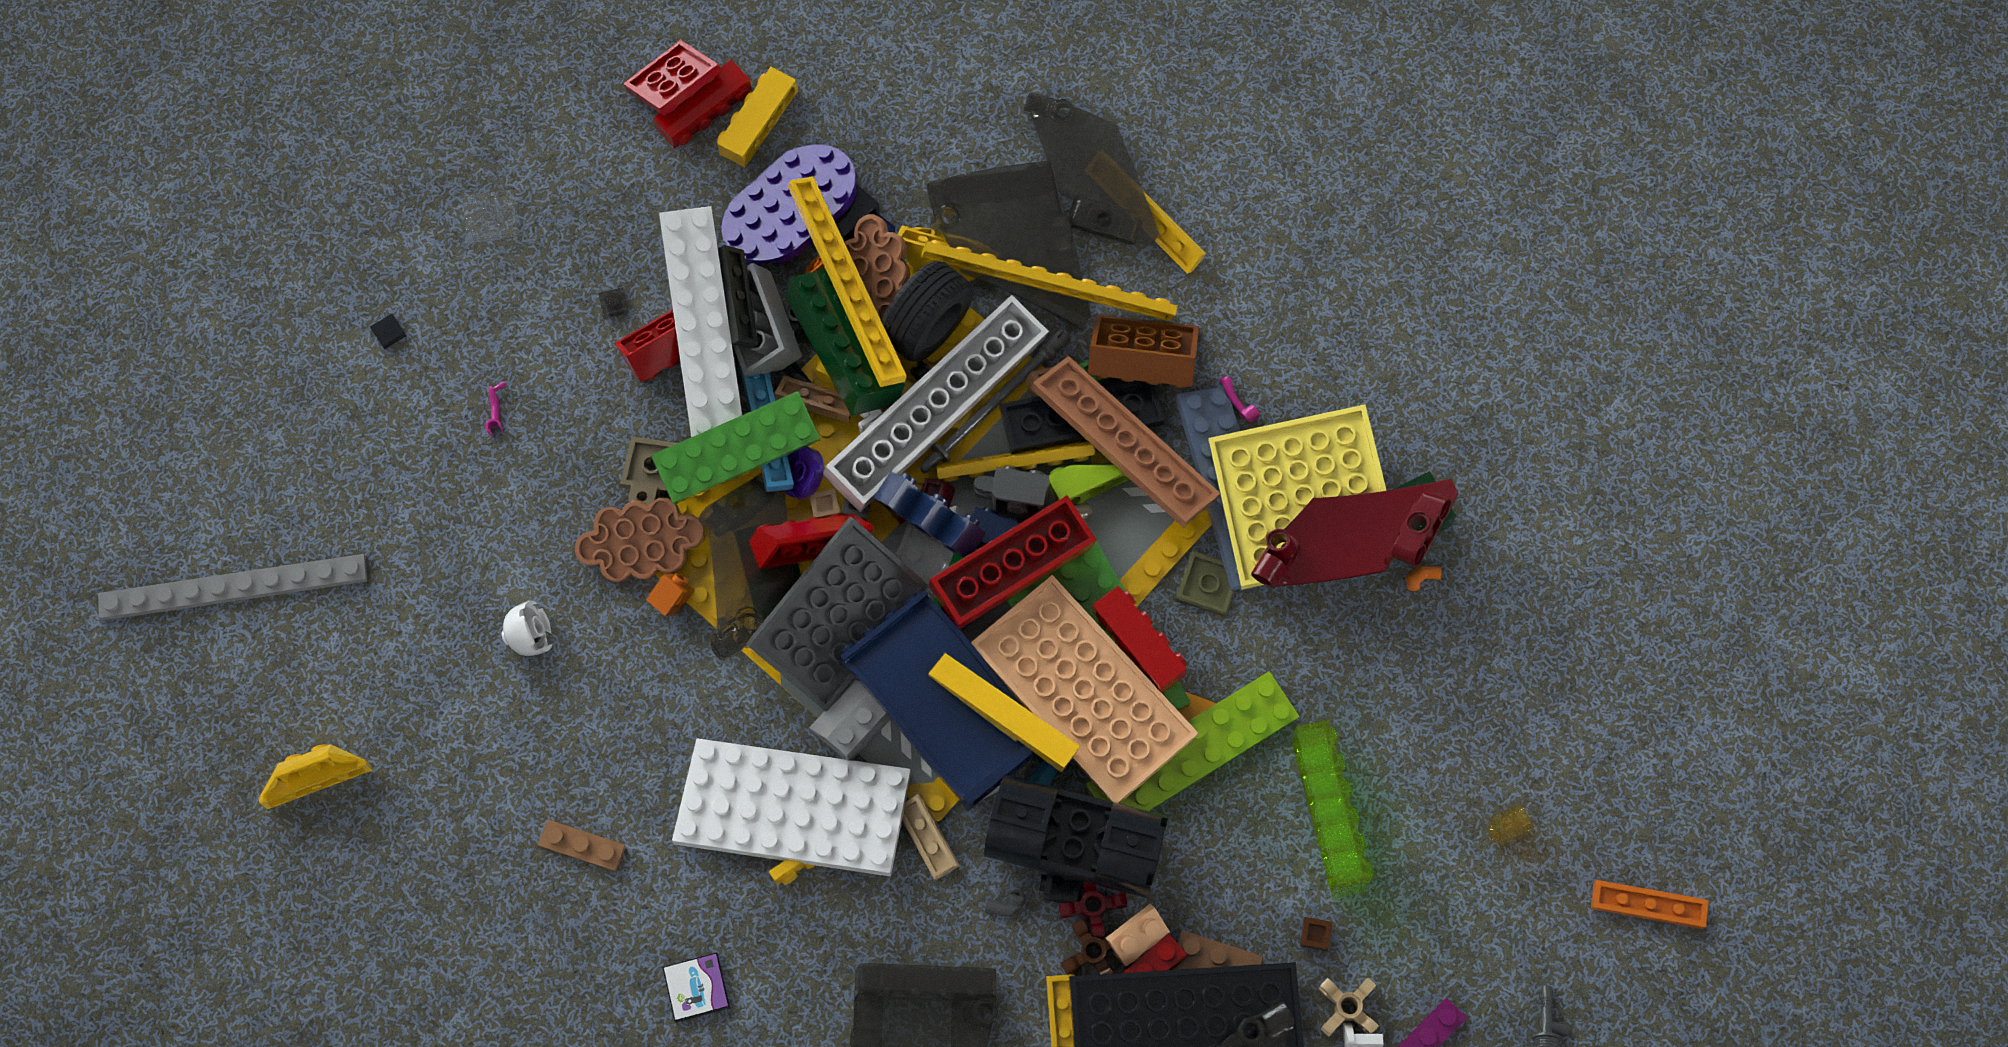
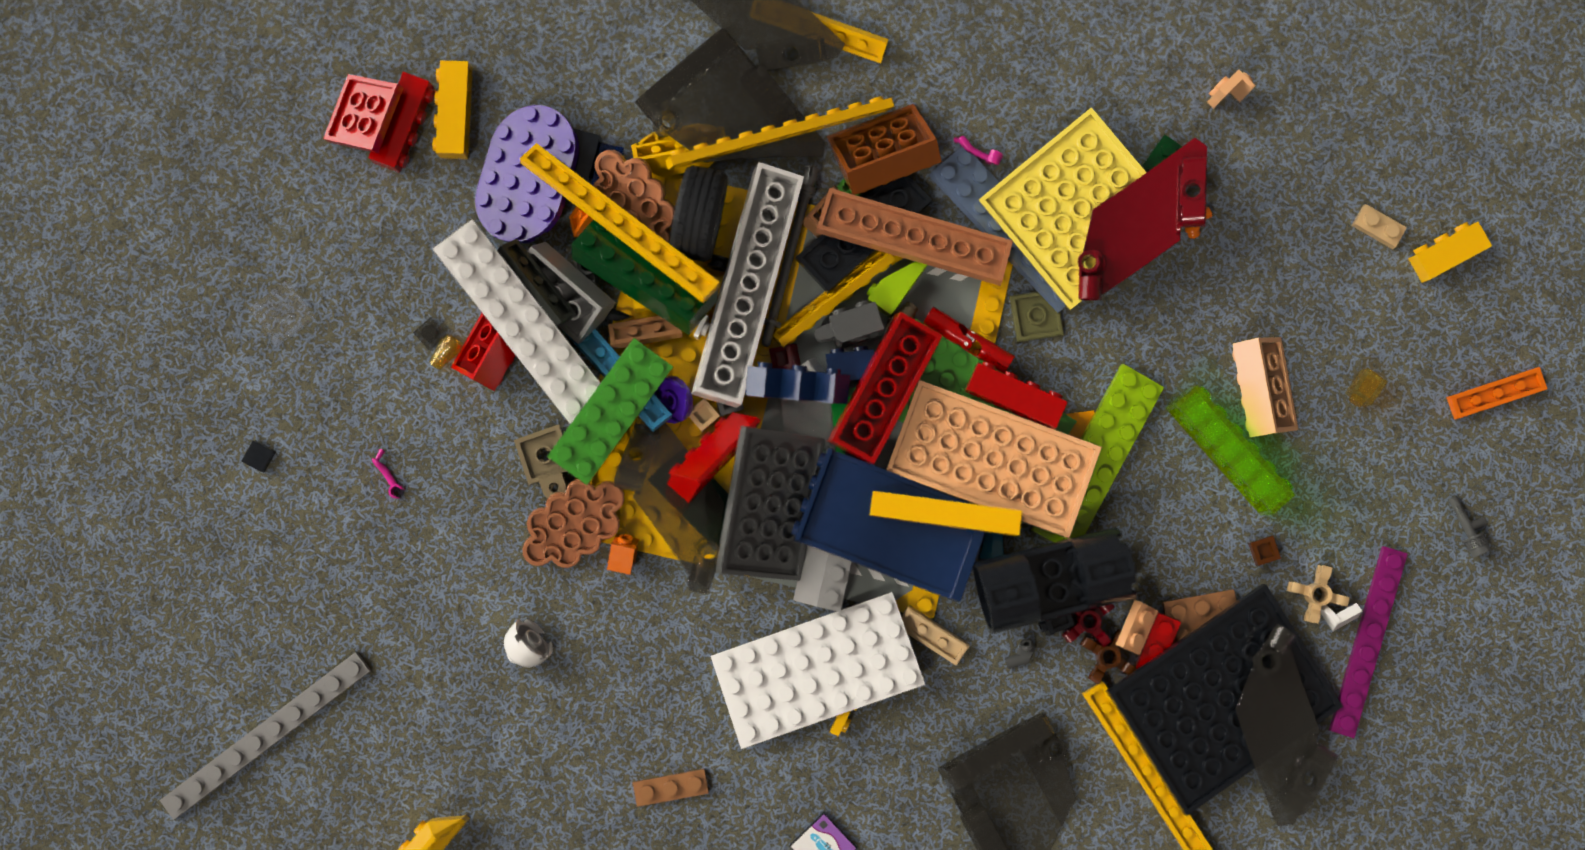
camera: 30 degrees left, 15 degrees up
(617, 325) = (445, 351): none -> clear yellow cone
(1120, 559) = (959, 334): none -> red piece
(1405, 770) = (1265, 386): none -> light nougat slope
(1521, 459) = (1238, 85): none -> light nougat bracket
(1610, 676) = (1379, 226): none -> tan plate
(1671, 735) = (1449, 251): none -> yellow brick

